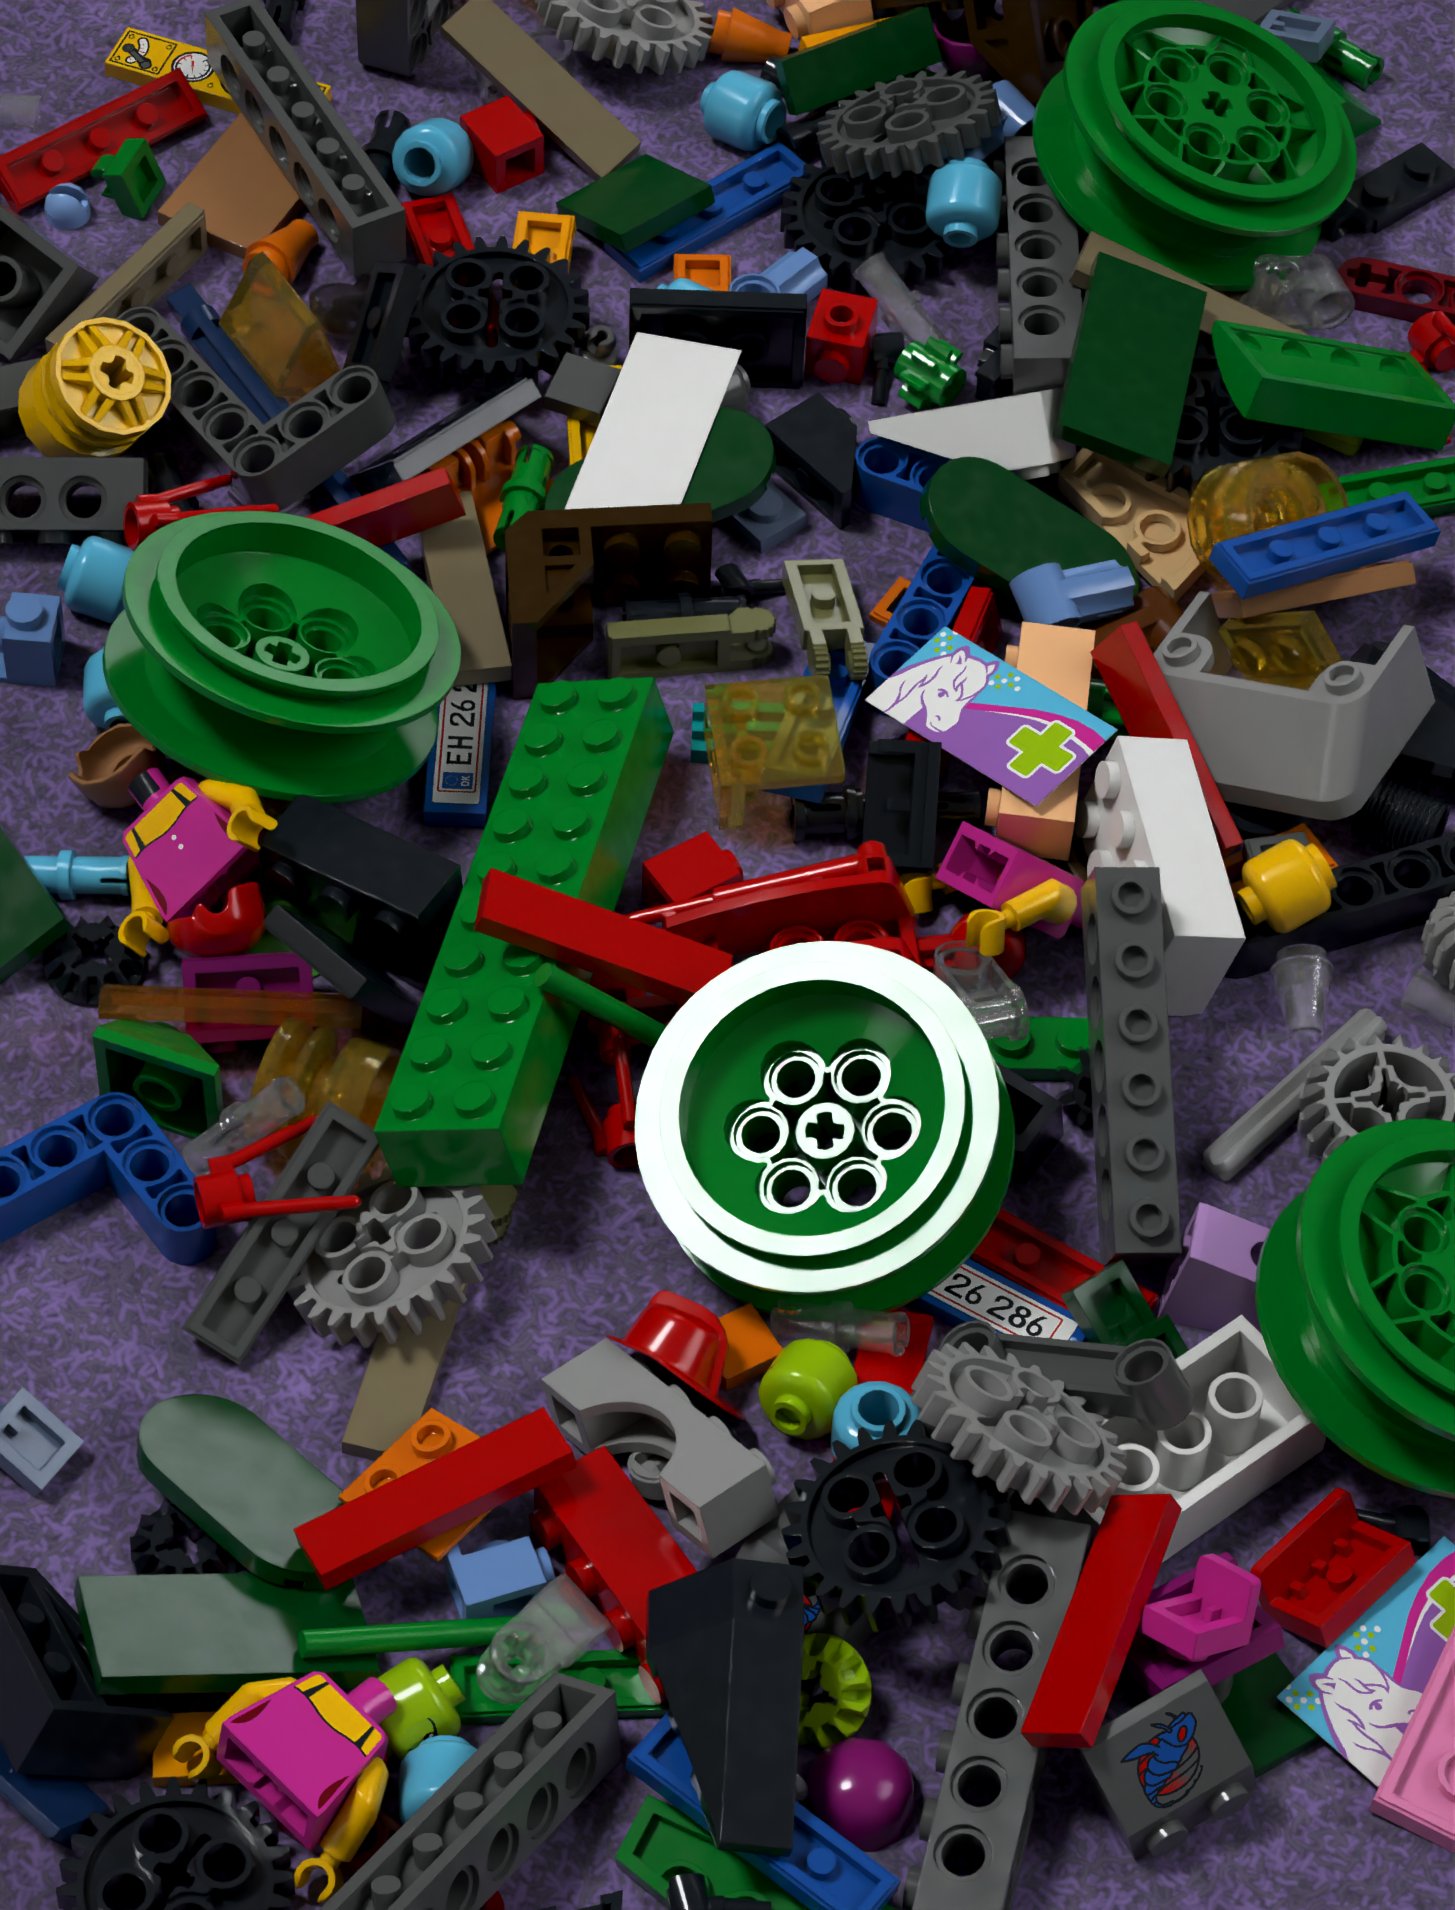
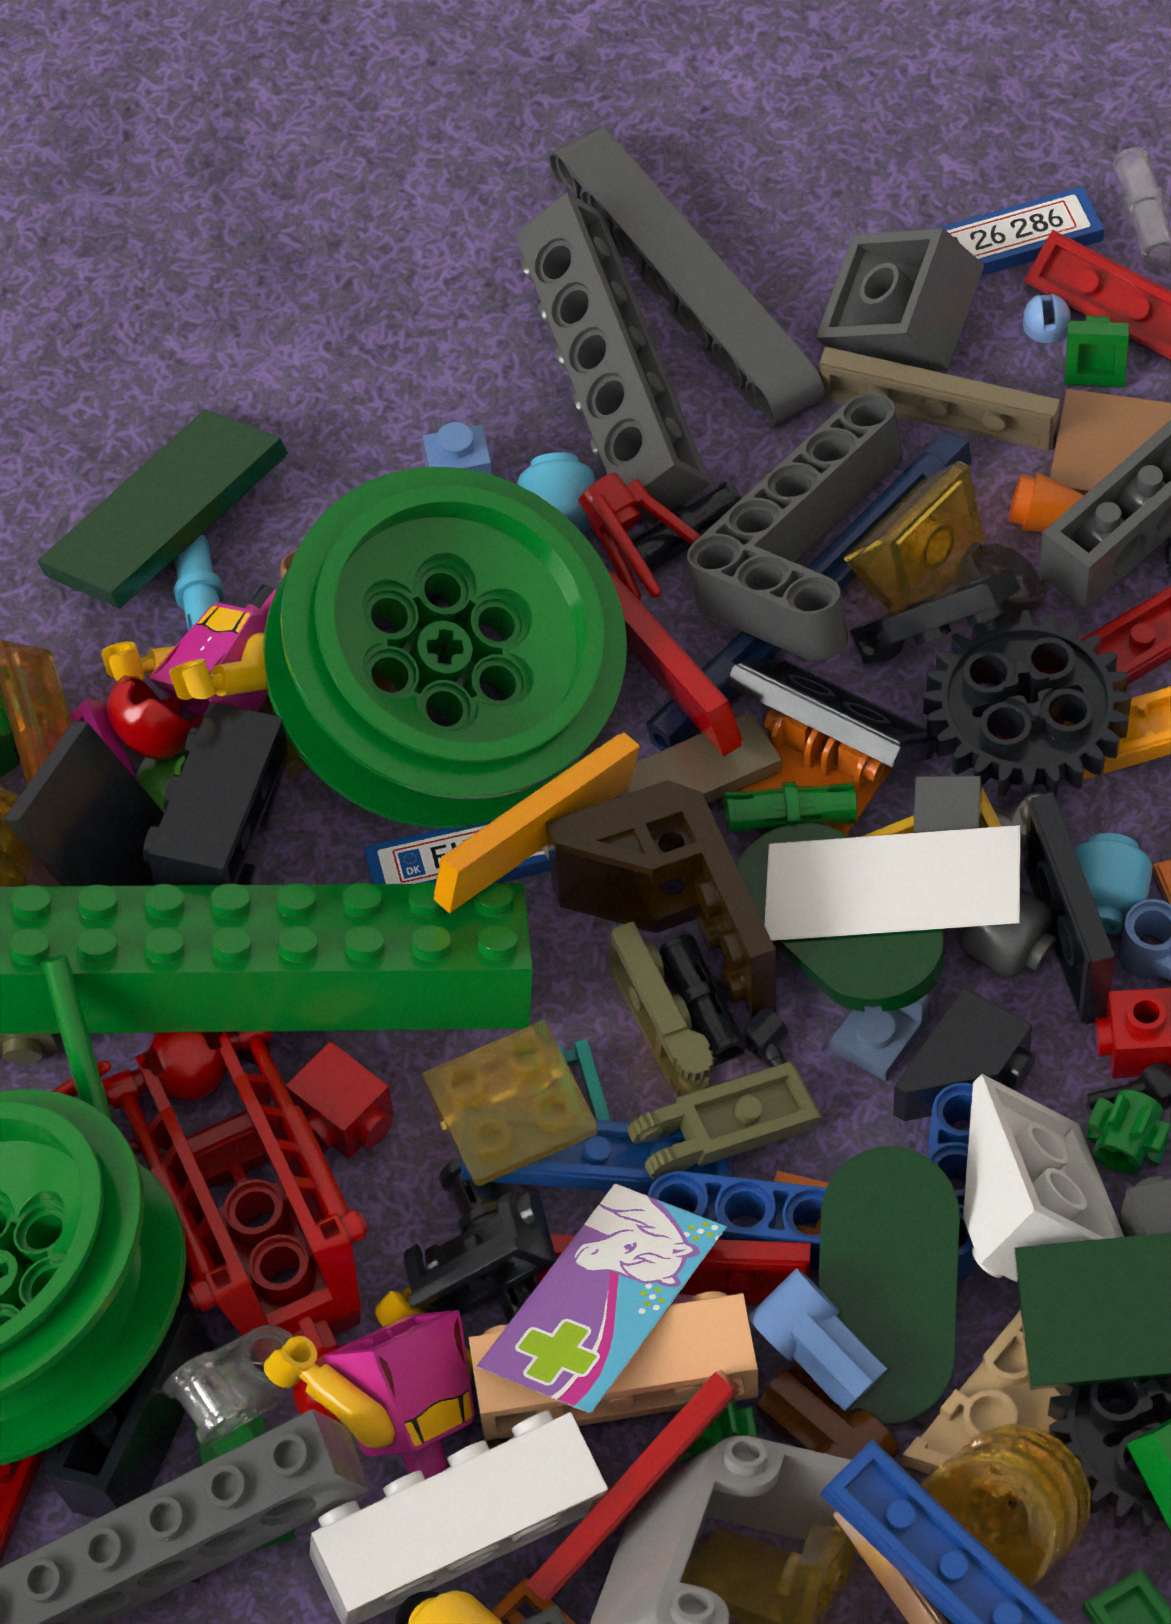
camera: 80 degrees right, 5 degrees up
(82, 982) = (85, 647): black gear -> none
(95, 391) = (783, 419): yellow wheel -> none
(502, 638) = (522, 829): none -> light orange tile
(595, 938) = (133, 1007): red tile -> none

